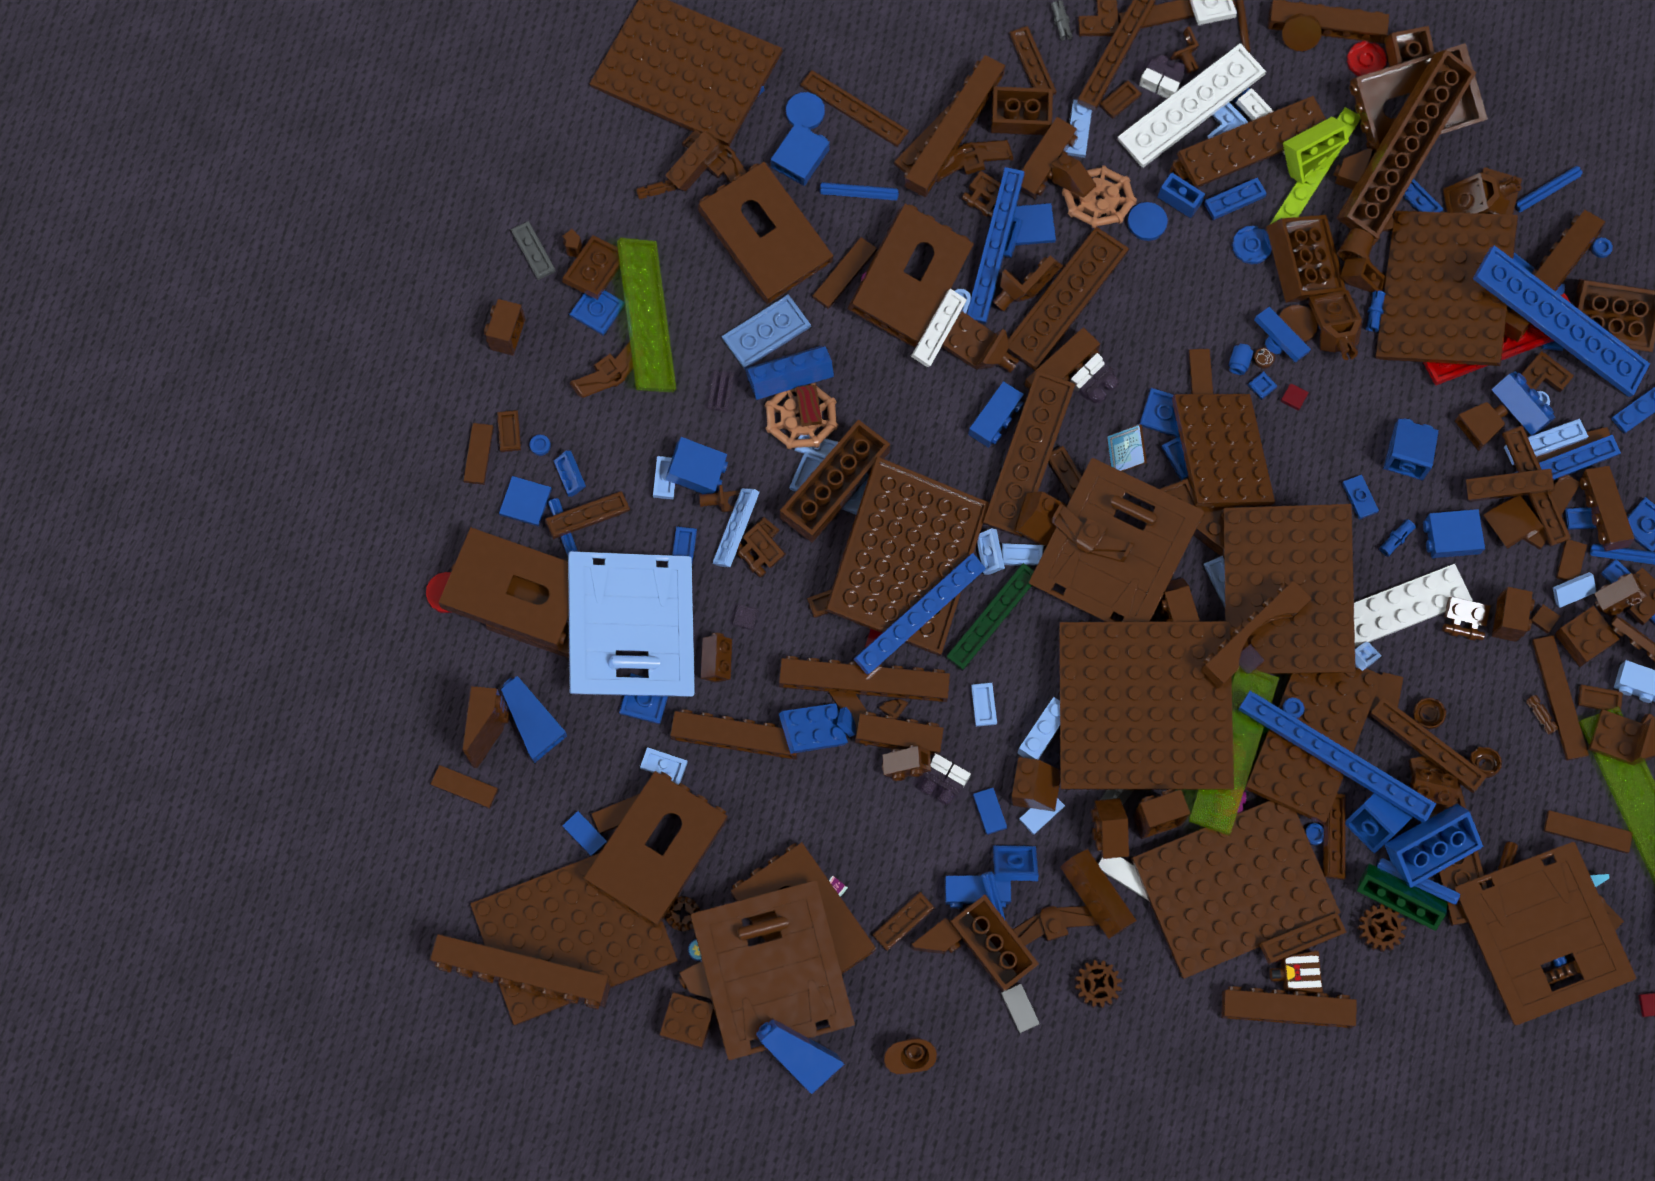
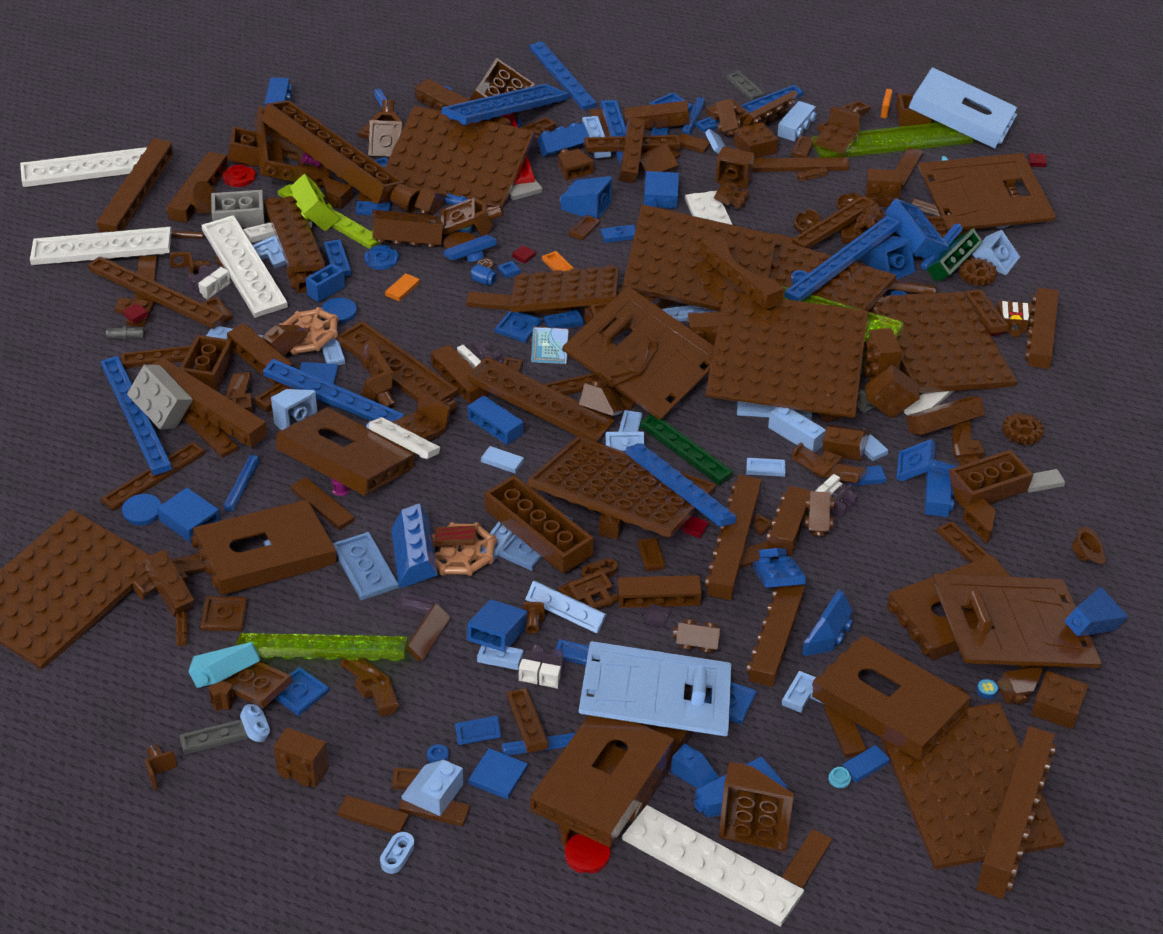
camera: 80 degrees left, 30 degrees down
(424, 431) = (396, 854): none -> light blue plate
(447, 703) = (713, 865): none -> white plate
(464, 403) = (373, 814): none -> reddish brown tile
(491, 447) = (435, 786): none -> light blue slope
(492, 212) = (158, 763): none -> reddish brown bracket
(549, 674) = (692, 767): none -> blue slope
(550, 279) = (255, 723): none -> light blue plate
(563, 810) = (839, 777): none -> medium azure plate
(603, 231) = (221, 664): none -> medium azure slope
(653, 515) = (541, 667): none -> white hips
(681, 220) = (223, 613): none -> reddish brown tile
(683, 406) = (427, 632): none -> reddish brown tile
(754, 788) = (830, 627): none -> blue wedge
(773, 614) = (659, 590): none -> reddish brown brick
(800, 550) = (600, 565): none -> reddish brown beam
(932, 65) = (136, 418): none -> blue plate
(942, 433) = (502, 459): none -> light blue tile
(947, 79) = (159, 397): none -> light grey brick
(959, 211) = (293, 406): none -> light blue slope
(994, 767) = (827, 465): none -> reddish brown plate
(1073, 232) = (333, 353): none -> light blue tile
(1085, 20) = (135, 313): none -> dark red tile
(1093, 417) = (514, 364): none -> reddish brown tile
(1203, 278) = (402, 287): none -> orange tile
(1285, 437) = (556, 262): none -> orange tile
(1290, 72) = (244, 205): none -> light grey brick
(1335, 207) = (366, 207): none -> blue tile
(1363, 456) = (584, 227): none -> reddish brown tile
(1419, 377) = (524, 190): none -> light grey tile
(1423, 951) = (999, 251): none -> light blue slope
(1515, 800) = (883, 186): none -> reddish brown brick
(1530, 61) = (278, 90): none -> blue brick

